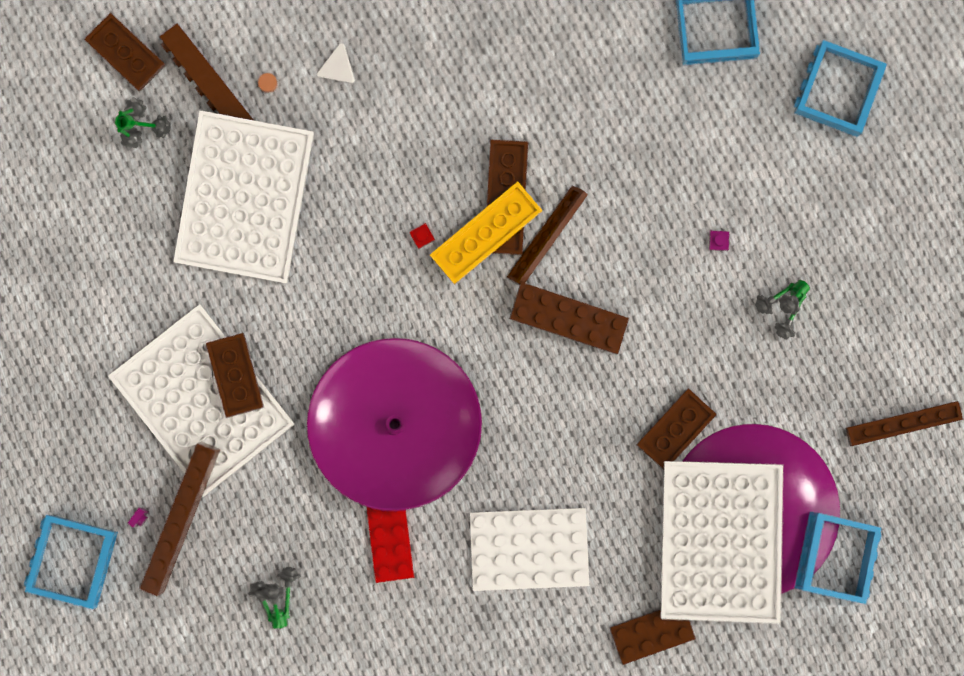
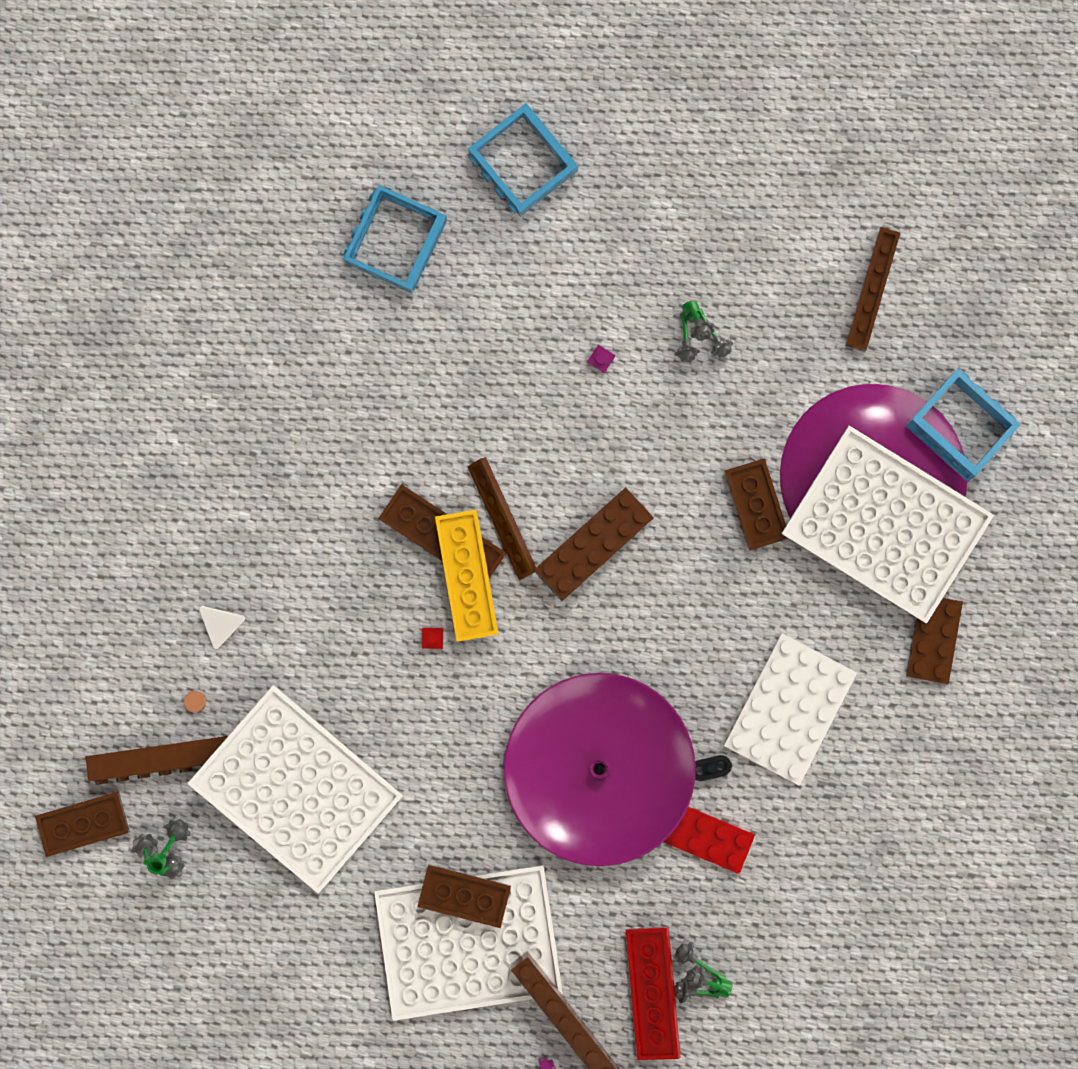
camera: 55 degrees left, 0 degrees up
(243, 567) = (653, 993): none -> red plate
(445, 512) = (710, 767): none -> black plate

